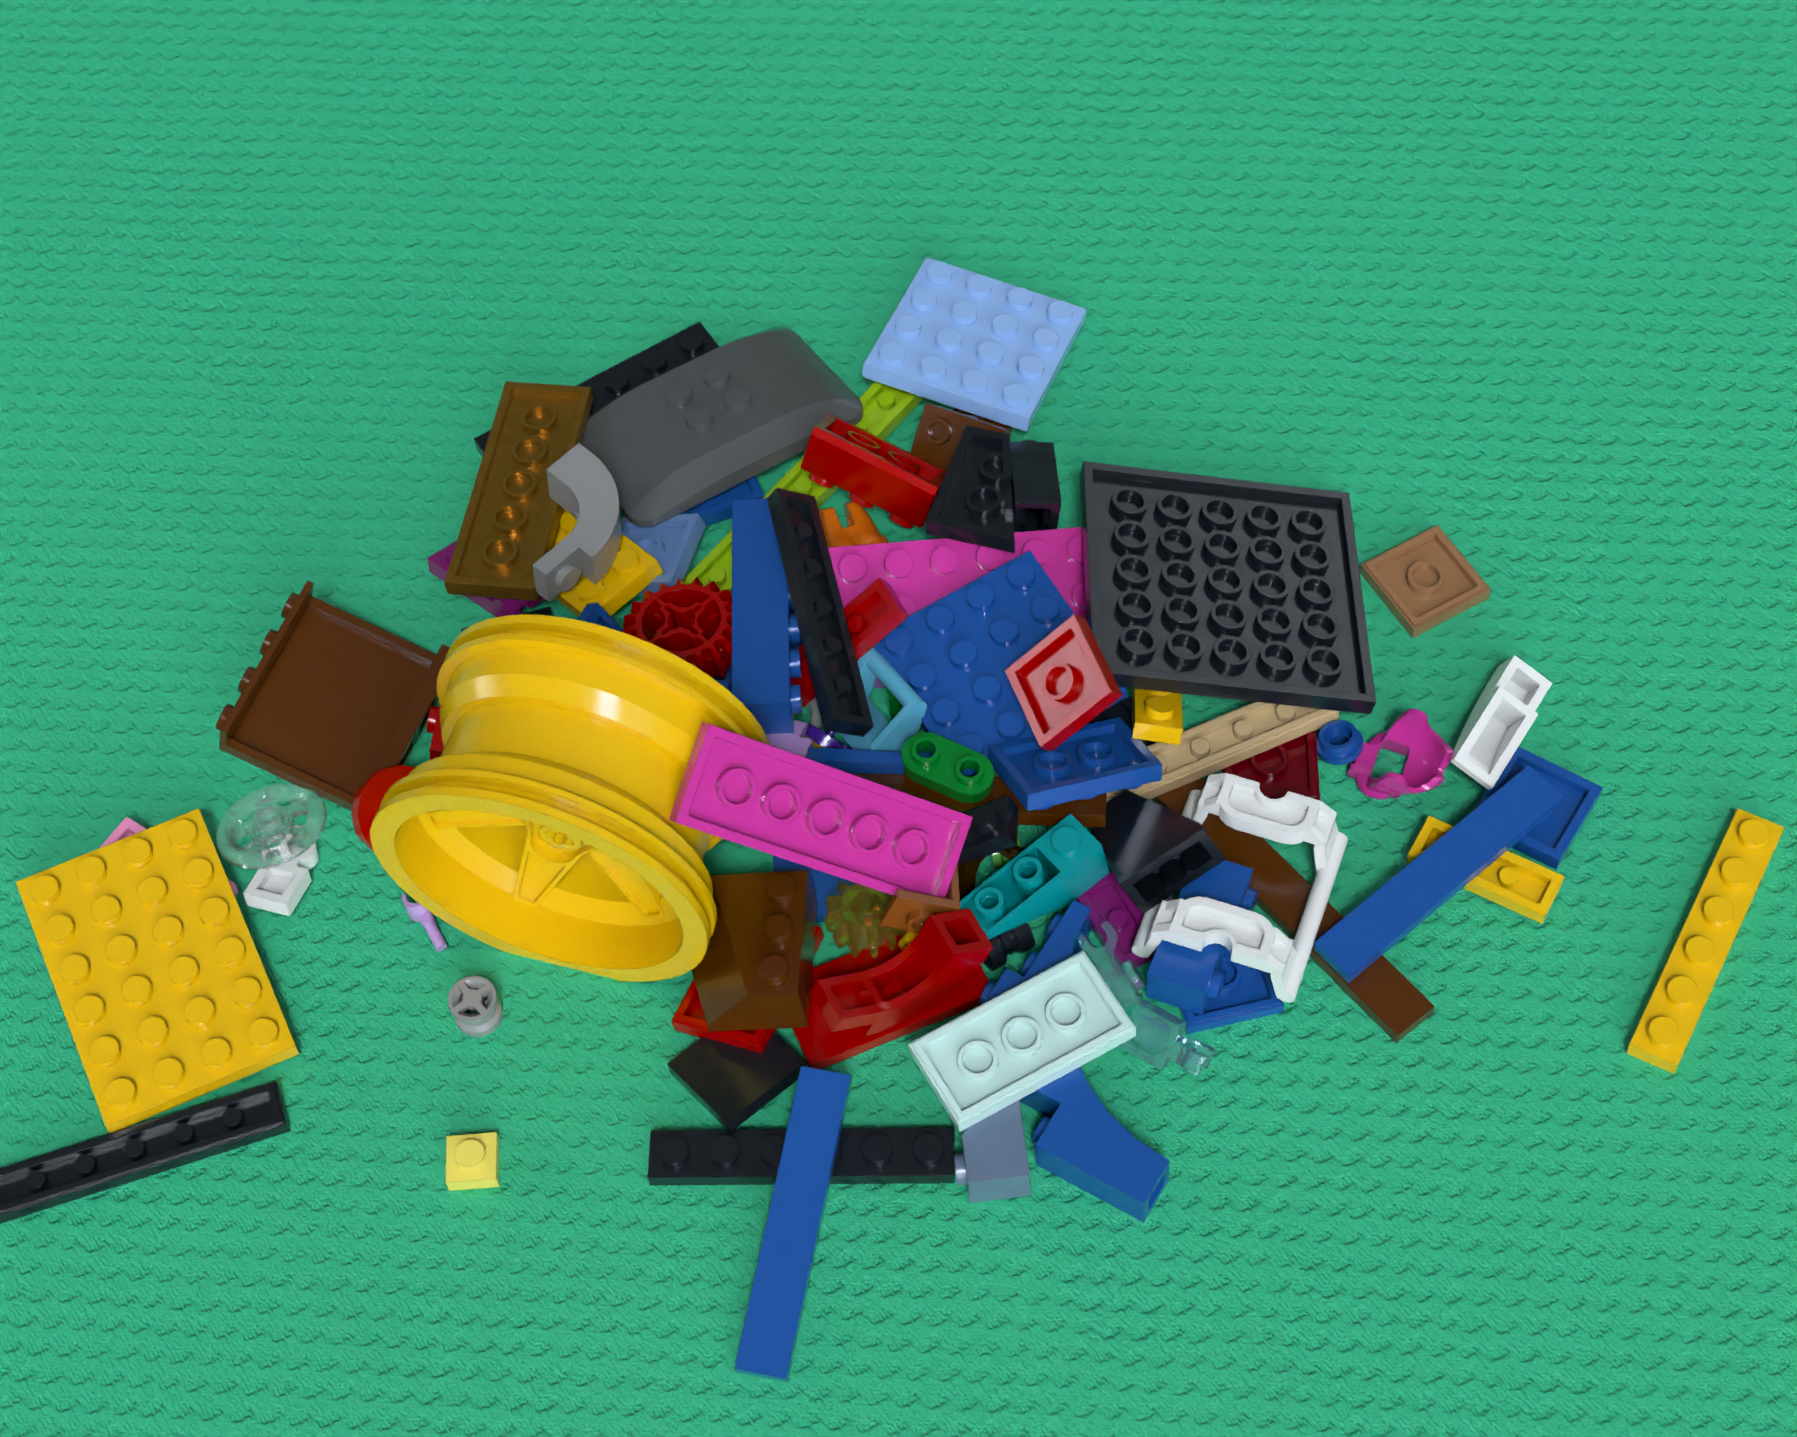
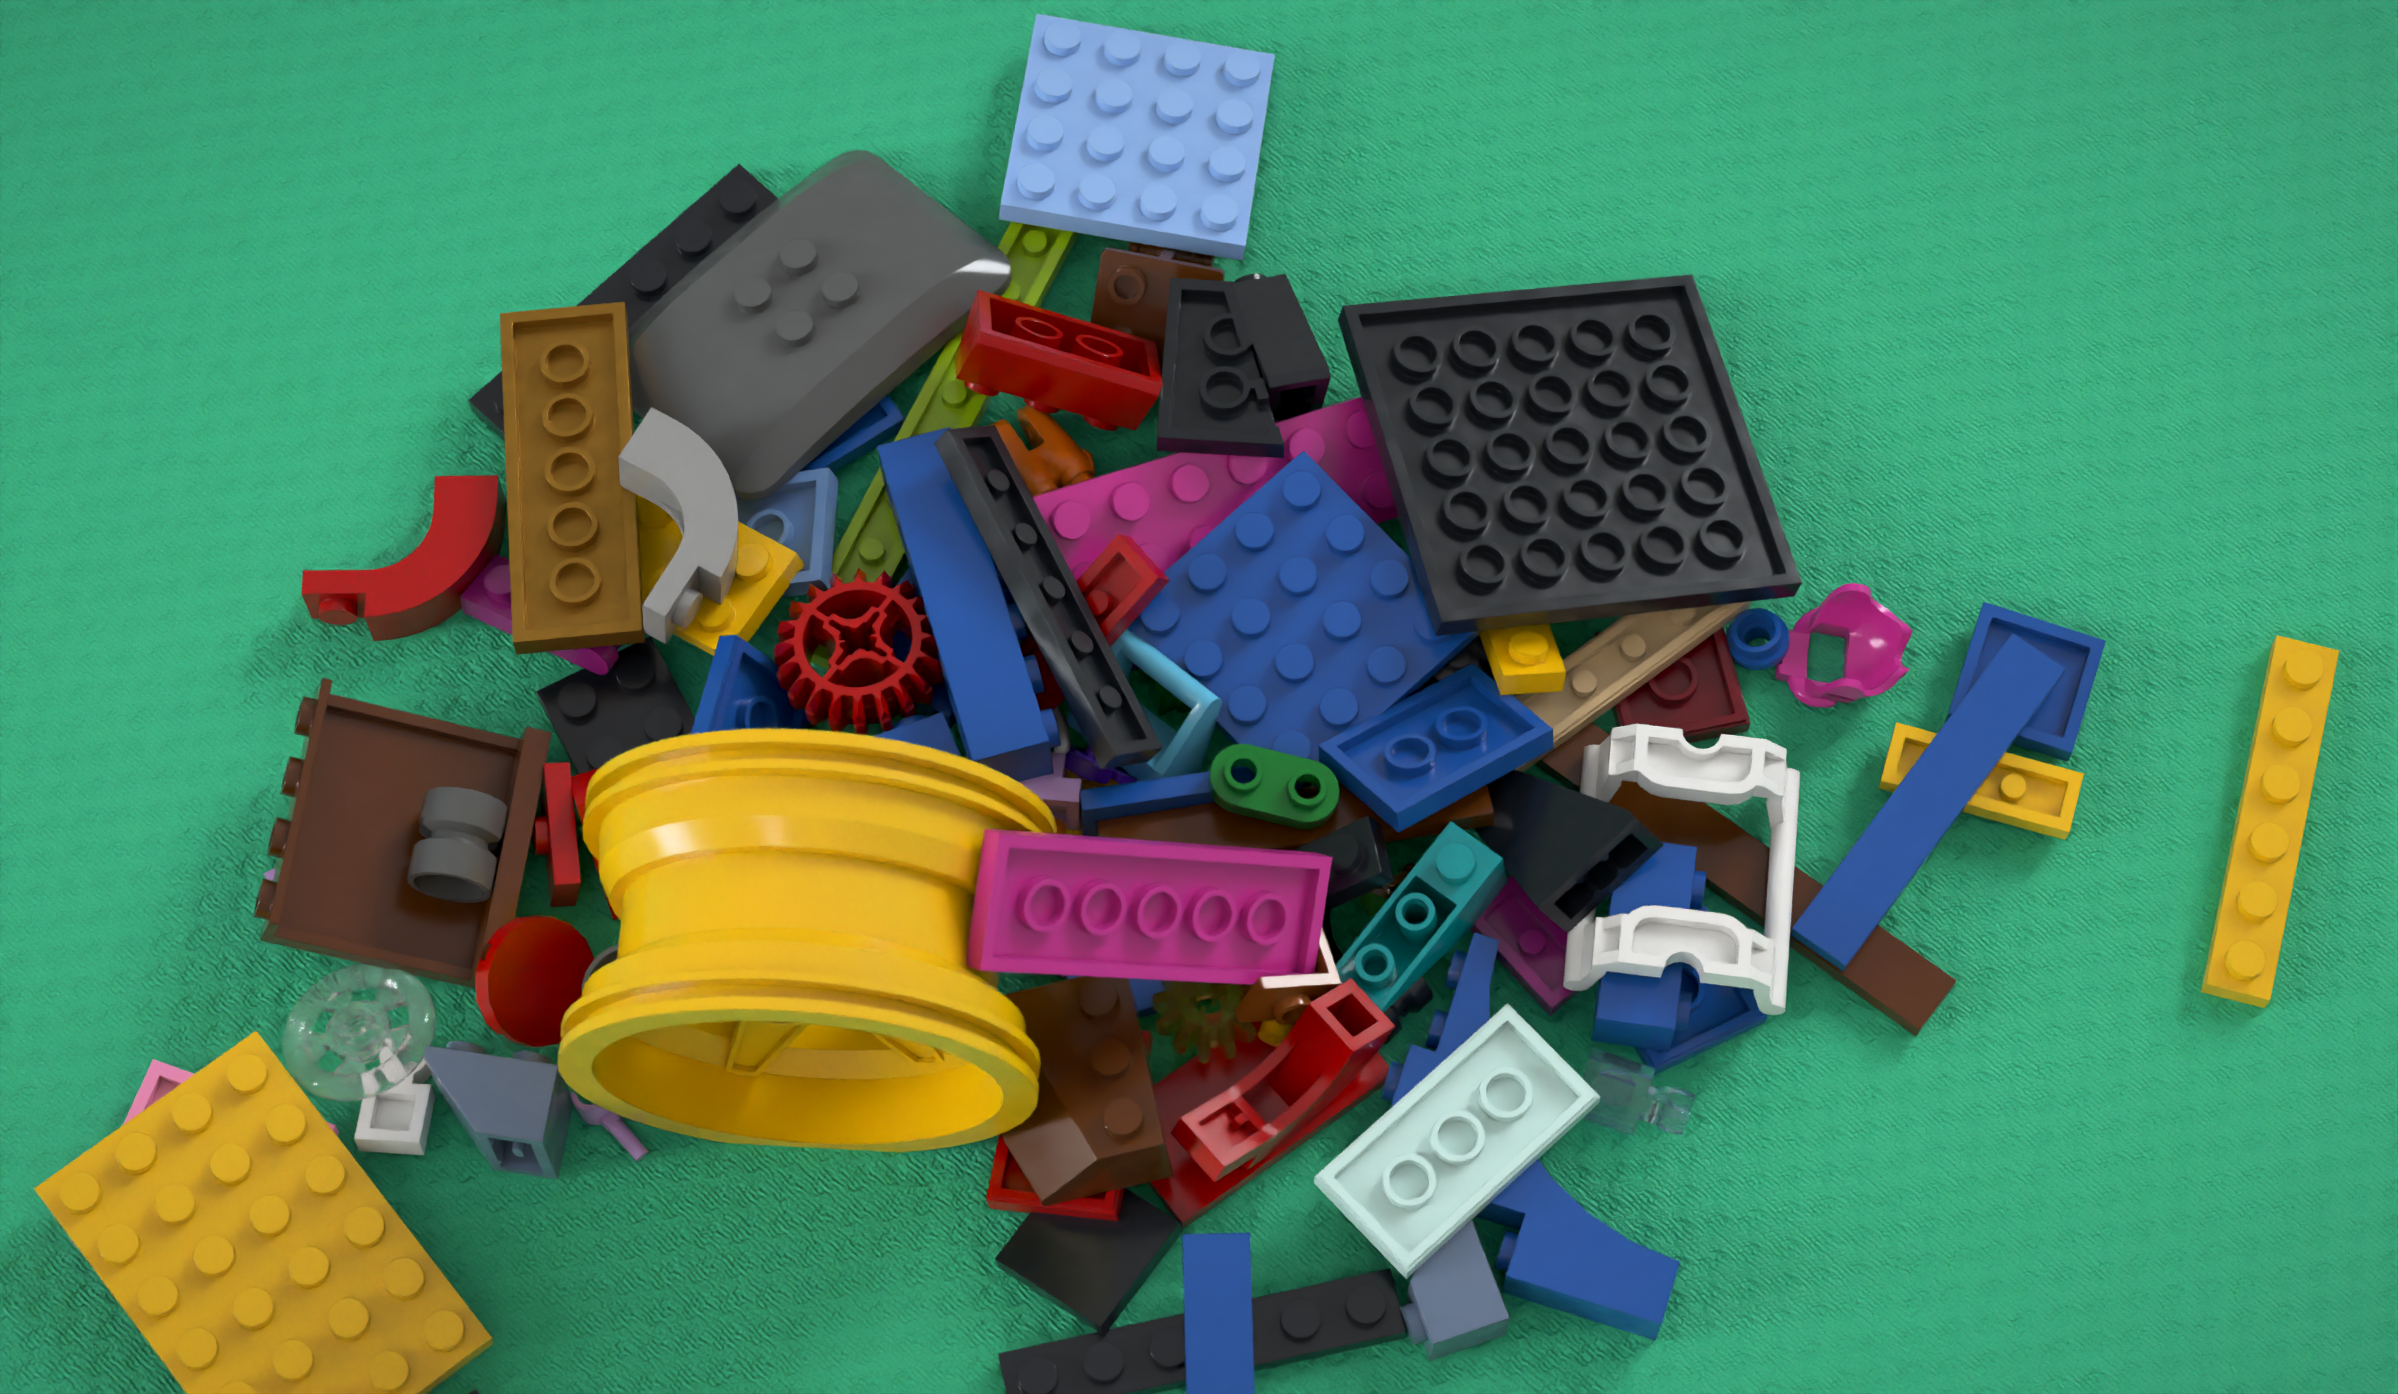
camera: 20 degrees left, 10 degrees up
(352, 889) = (508, 1106): none -> sand blue slope
(369, 713) = (459, 834): none -> dark grey wheel
(403, 548) = (428, 582): none -> red arch
(478, 995) = (706, 1221): light grey wheel -> none
(1063, 683) = (1405, 645): plate -> none
(1120, 977) = (1560, 1027): clear light blue plate -> none
(1425, 581) = (1815, 383): medium nougat tile -> none
(1499, 721) = (1959, 573): white slope -> none

